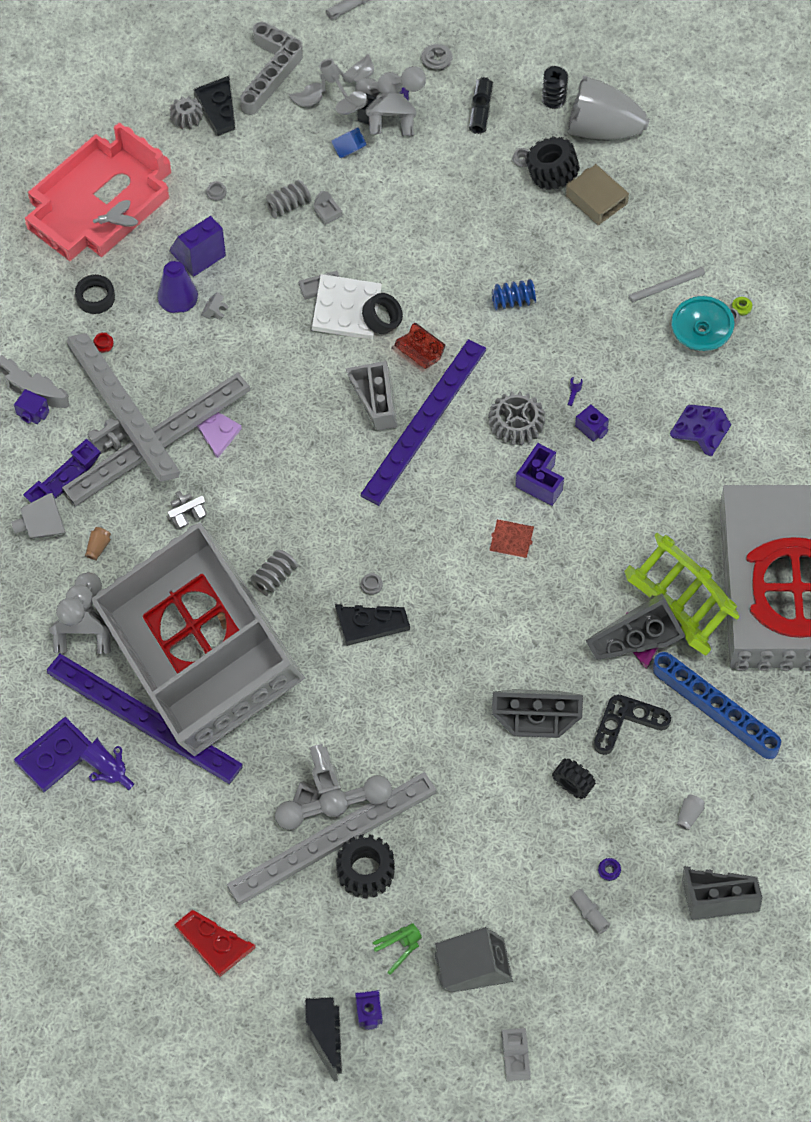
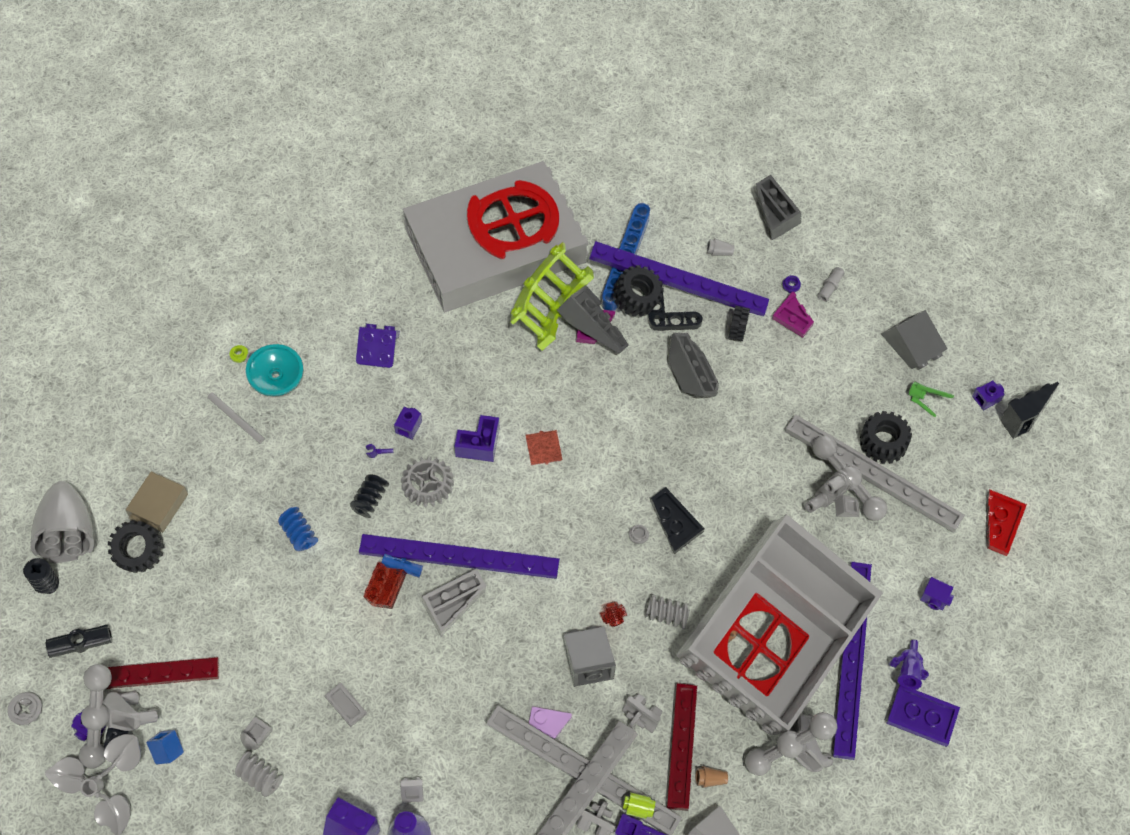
camera: 115 degrees left, 0 degrees up
(98, 463) = (639, 805): none -> lime brick
(124, 524) = (682, 747): none -> dark red plate
(166, 829) = (937, 594): none -> dark purple brick
(263, 484) = (589, 656): none -> slope
(295, 524) = (613, 614): none -> clear red gear
(341, 304) = (363, 669): white plate -> none
(372, 319) = (363, 638): black tyre -> none
(423, 155) = (164, 672): none -> dark red plate
(444, 359) = (397, 563): none -> blue pin
(516, 1054) = (960, 295): light grey slope -> none
(521, 152) = (128, 578): light grey plate -> none
(523, 364) = (367, 494): none -> black piece
(564, 850) = (793, 316): none -> magenta wing
(648, 666) = (647, 282): none -> black tyre
(659, 743) = (681, 279): none -> dark purple plate

